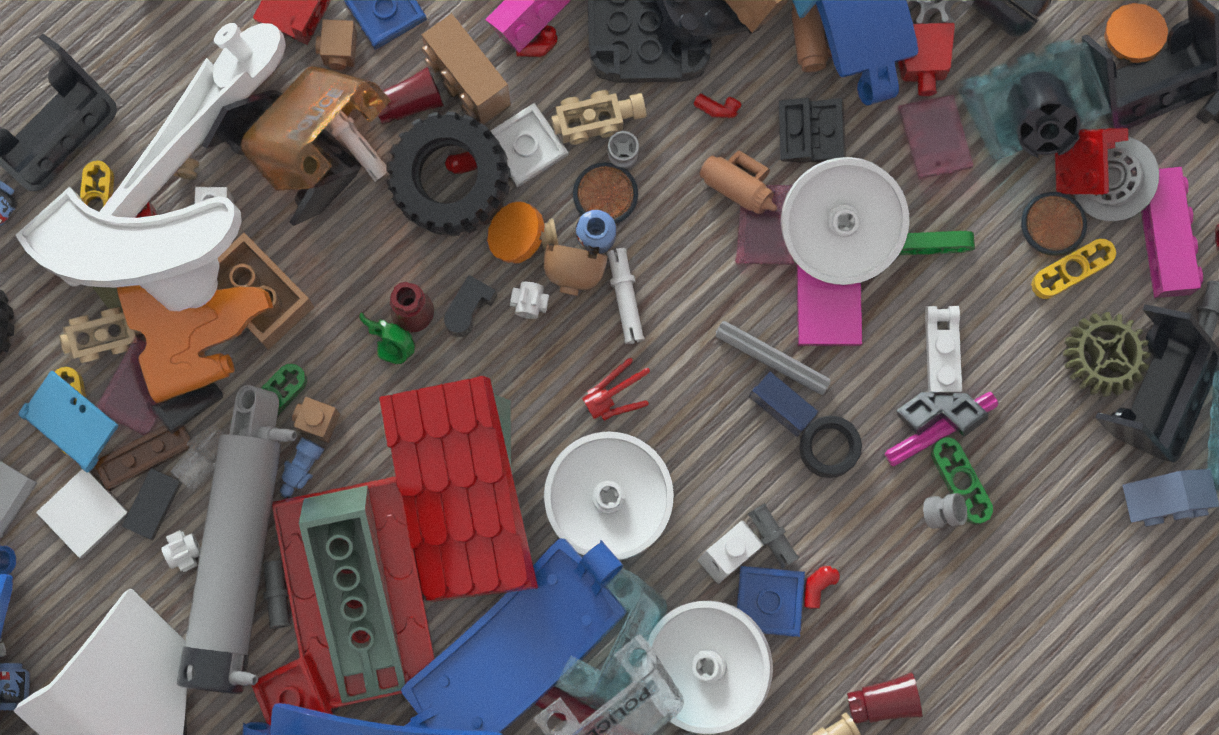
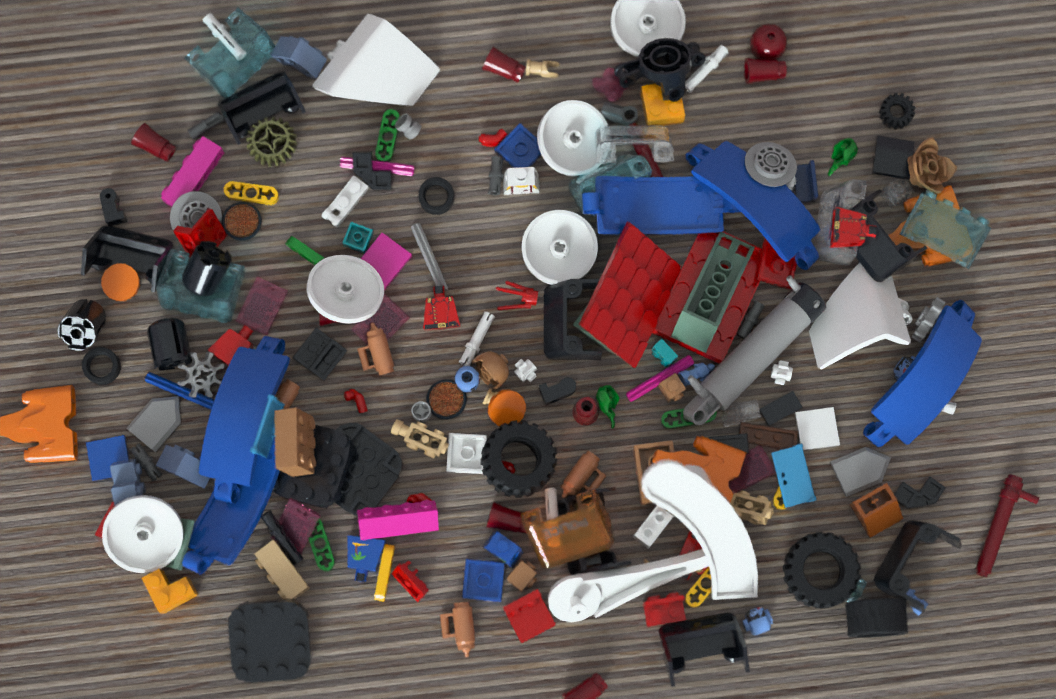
camera: 140 degrees left, 0 degrees up
(126, 133) = (664, 610): none -> red bracket
(344, 424) = (654, 381): none -> dark pink axle
(356, 222) = (581, 473): none -> nougat piece
(358, 458) = (664, 353): none -> teal piece
(387, 56) = (503, 548): none -> blue torso
(465, 70) = (469, 508): medium nougat brick -> none
(559, 418) = (556, 342): none -> black windscreen
(699, 294) = (440, 311): none -> red torso
(783, 404) = (442, 232): dark blue panel -> none
(886, 312) = (358, 237): none -> teal piece
(1055, 557) = (377, 66): none -> white panel

